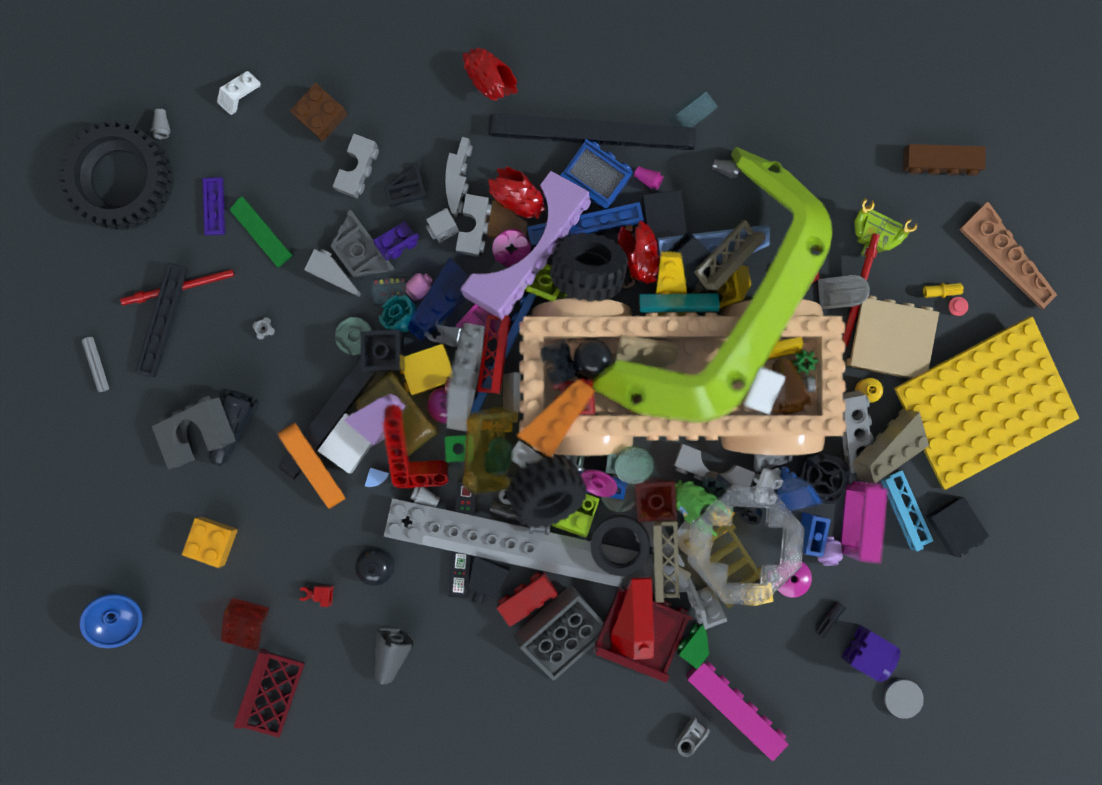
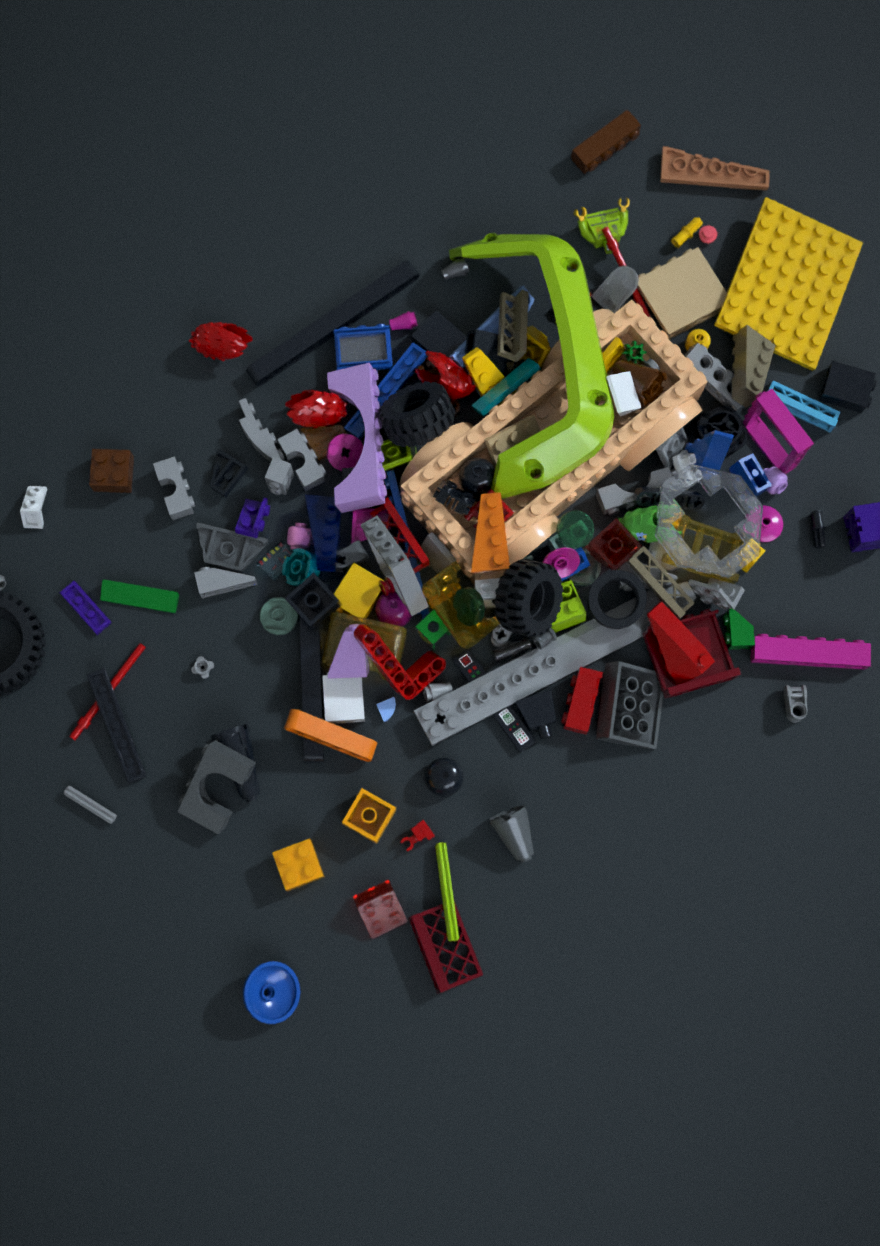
camera: 40 degrees left, 10 degrees down
(291, 550) = (369, 815): none -> light orange brick
(302, 655) = (447, 892): none -> lime axle
(697, 110) = (397, 248): clear light blue tile -> none

